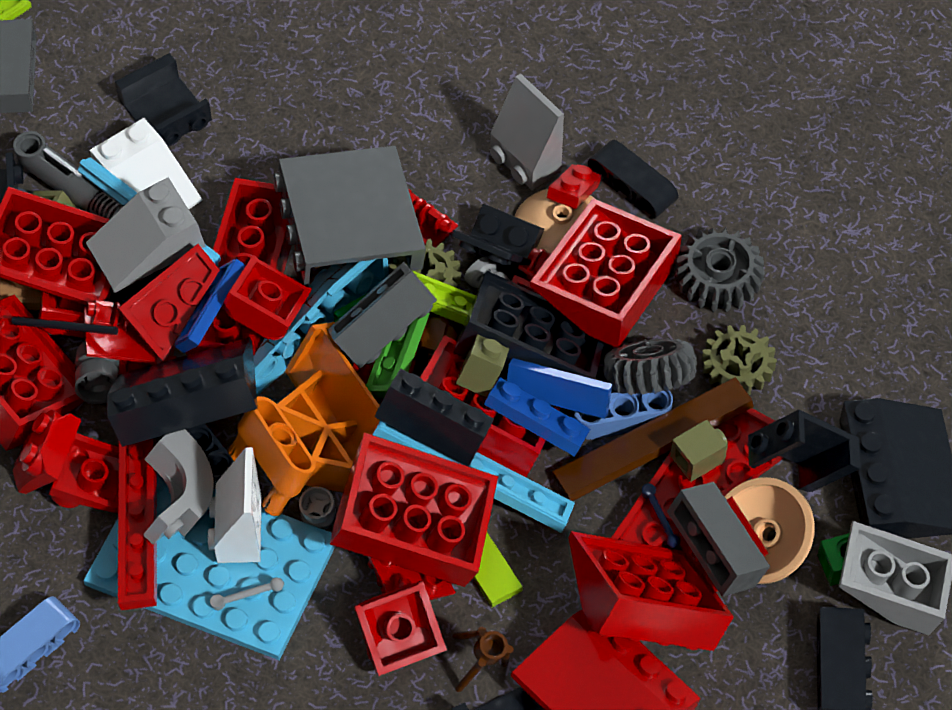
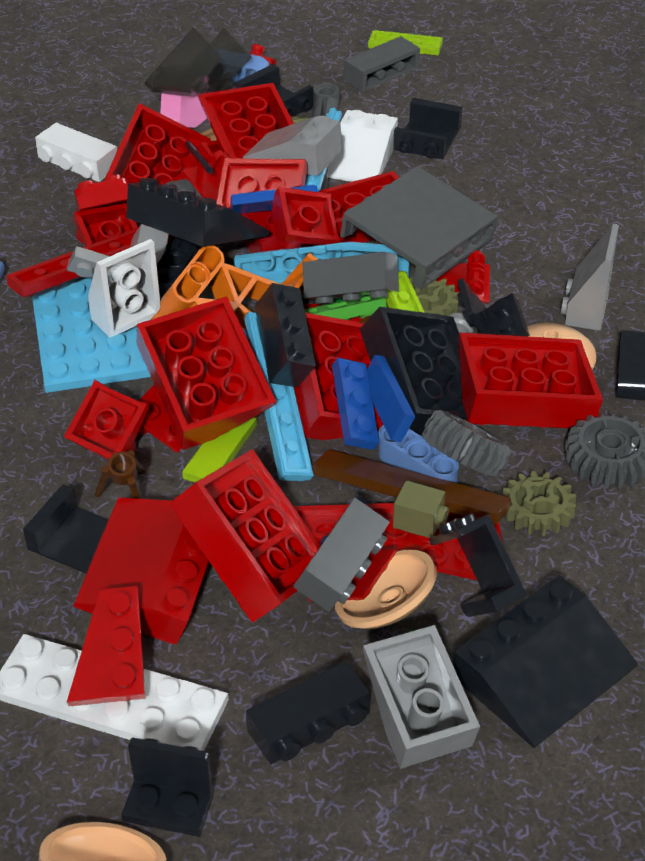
camera: 55 degrees right, 15 degrees down
(218, 601) = (58, 332): light grey hinge -> none
(482, 365) = (360, 341): olive brick -> none
(574, 186) = (593, 336): red plate -> none

